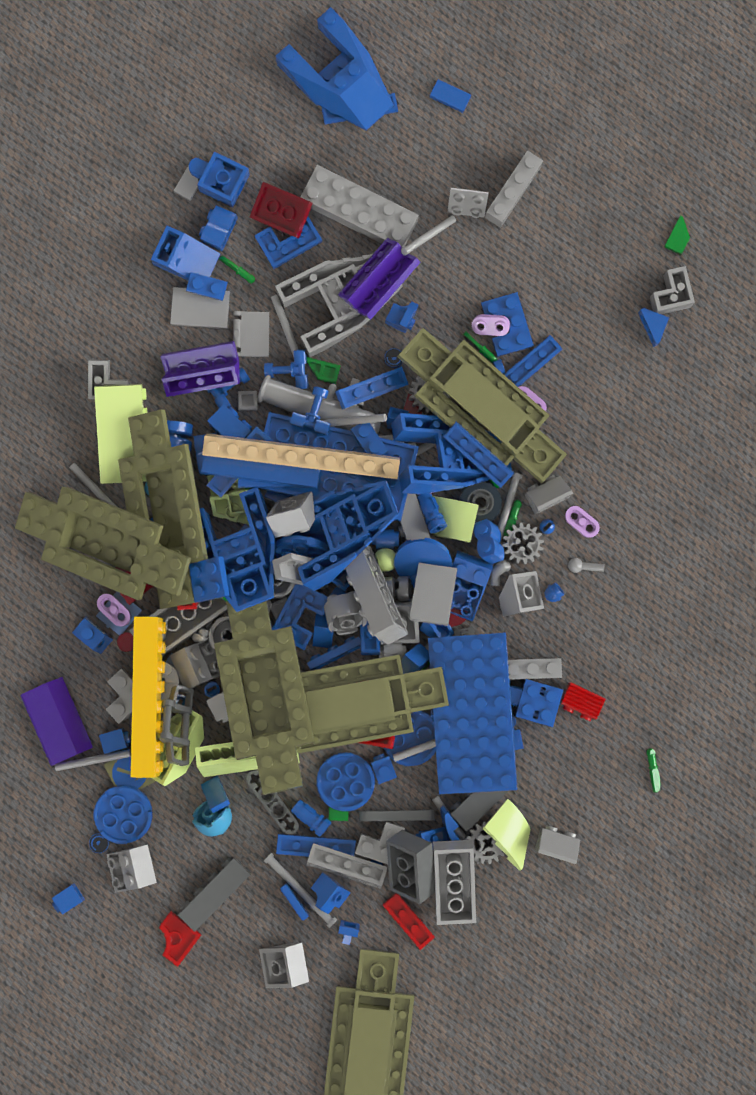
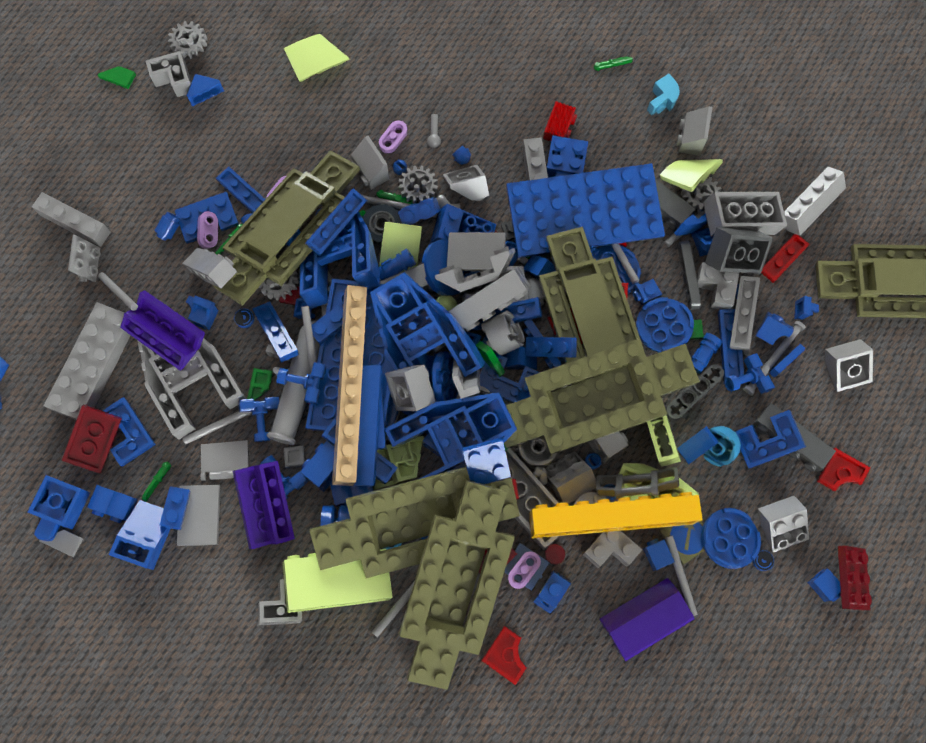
camera: 90 degrees left, 10 degrees down
(37, 584) = (504, 656): none -> red tile
(70, 926) = (854, 578): none -> dark red plate
(206, 880) = (786, 442): none -> blue plate
(280, 864) = (753, 375): none -> blue bar
(320, 597) = (490, 358): none -> green tile
(324, 658) = (551, 347): none -> blue plate
(399, 569) = (454, 276): none -> light grey slope
(441, 326) = (210, 267): none -> light grey brick
(466, 962) = (814, 200): none -> light grey brick
(498, 285) = (167, 226): none -> blue brick
(606, 825) = (667, 94): none -> medium azure brick
(684, 444) = (313, 56): none -> yellowish green slope
(719, 317) = (188, 39): none -> light grey gear

